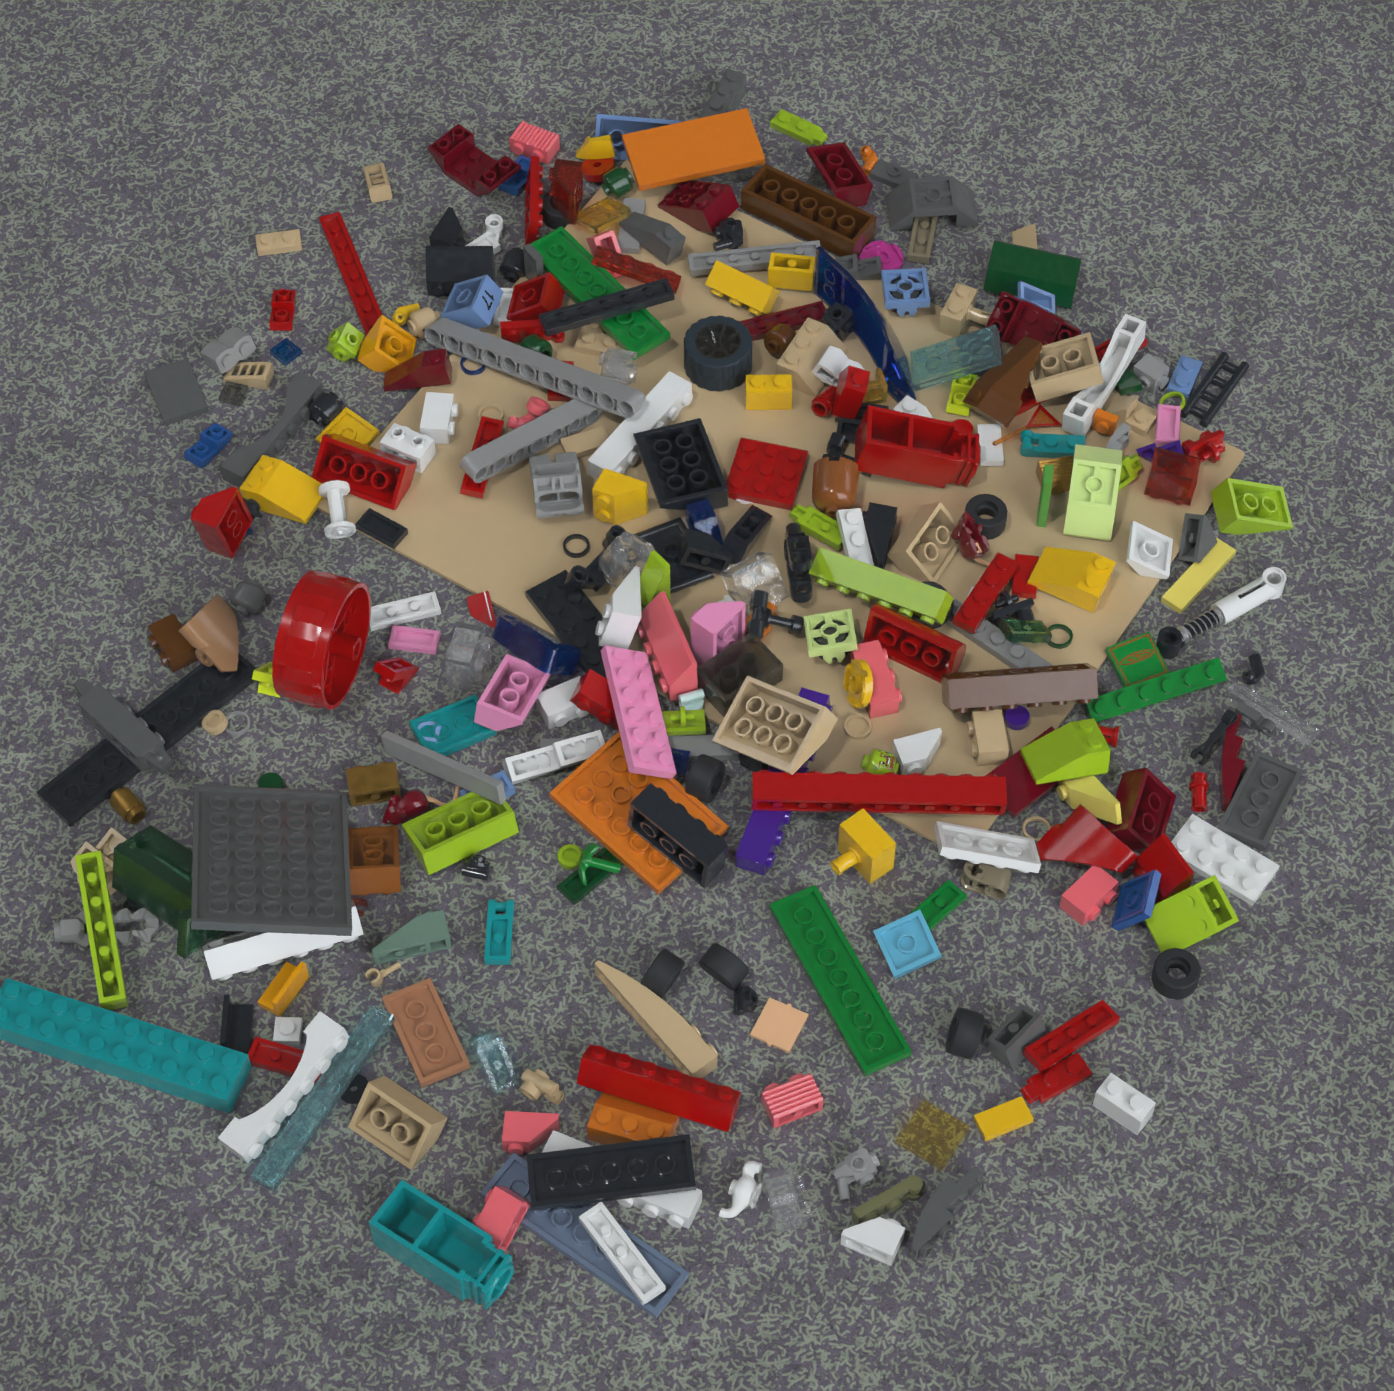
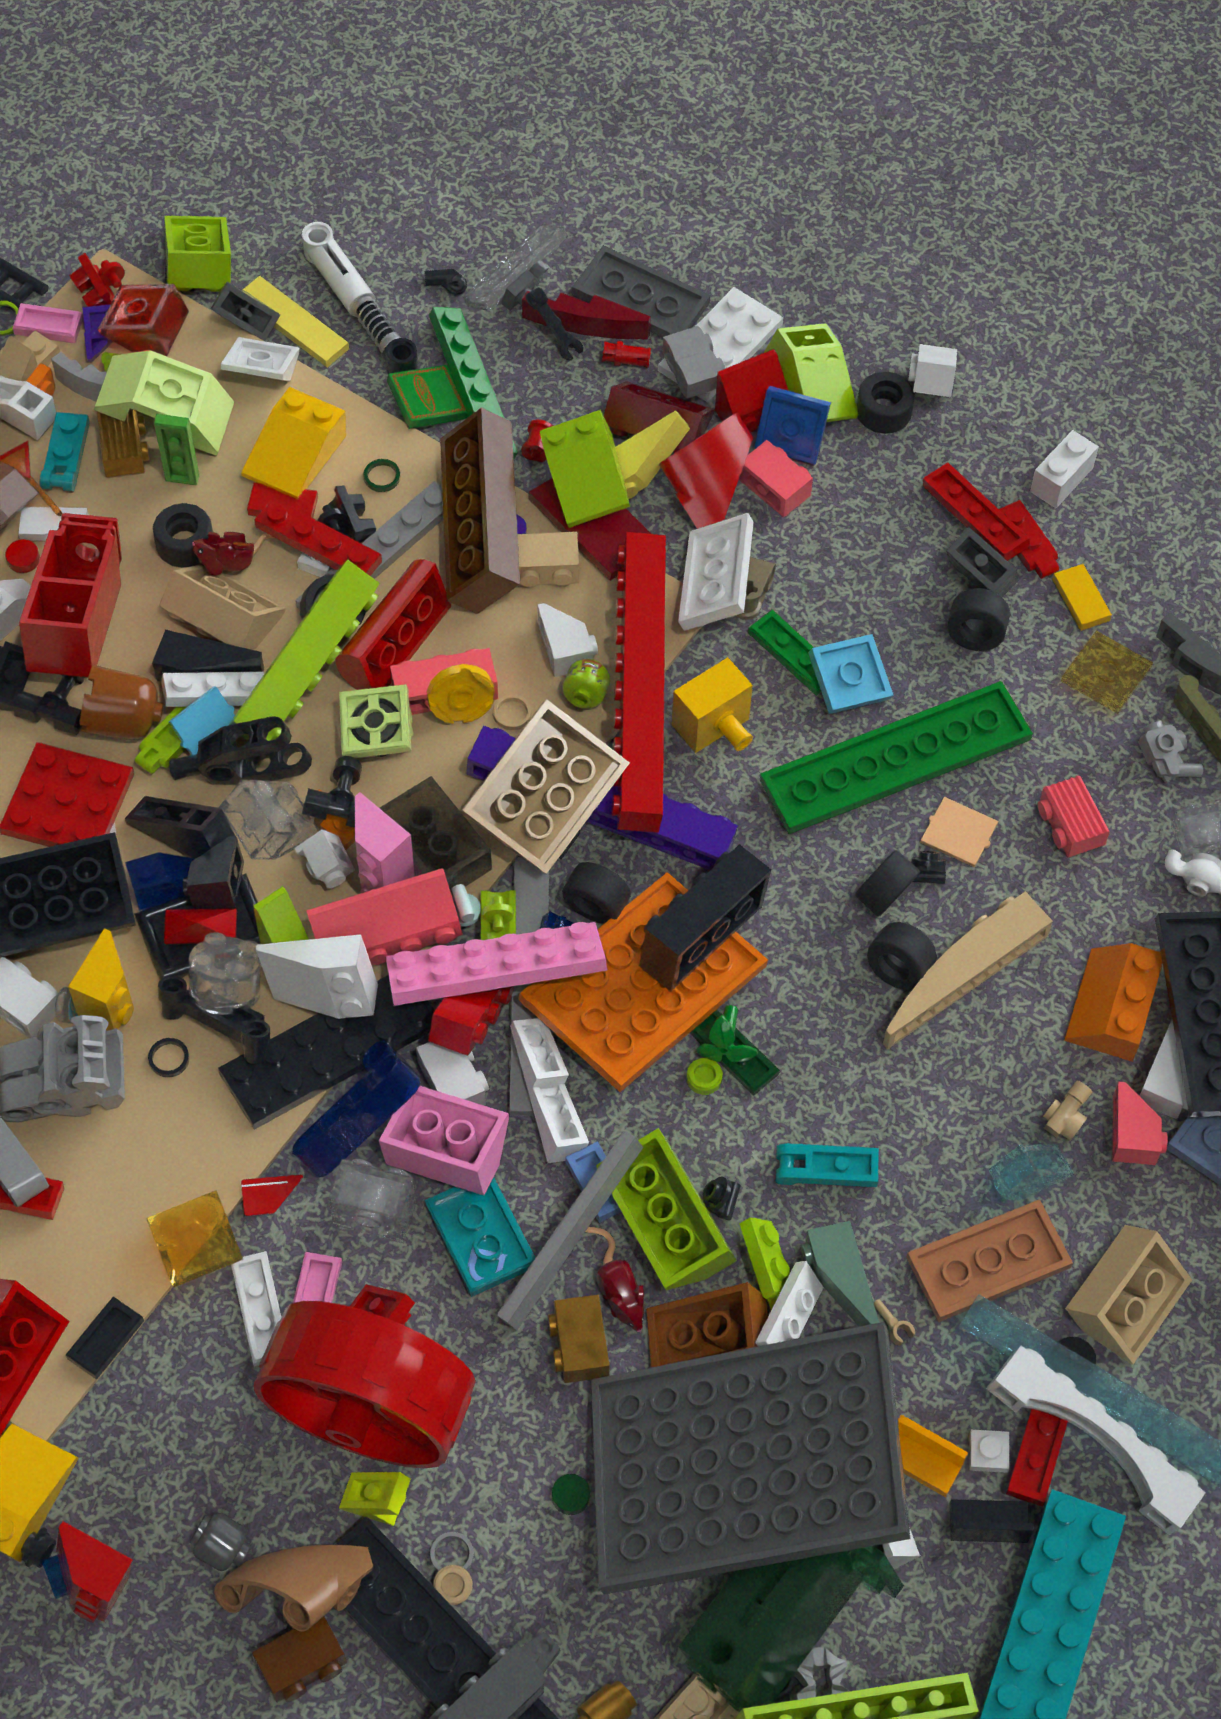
camera: 90 degrees left, 5 degrees up
(339, 525) = (65, 1403): white hose -> none
(383, 899) = (792, 1306): none -> white plate
(423, 893) = (766, 1257): none -> lime hinge
(443, 563) = (194, 1238): none -> clear yellow slope
(658, 1087) = (1068, 966): red brick -> none
(666, 544) = (192, 925): none -> red slope
(826, 535) = (201, 719): none -> medium azure piece
(1025, 631) = (383, 502): clear green plate -> none
(1034, 818) = (677, 518): tan piece -> none
(1188, 827) = (692, 361): none -> light grey brick
(1206, 1003) = (933, 370): none -> white brick

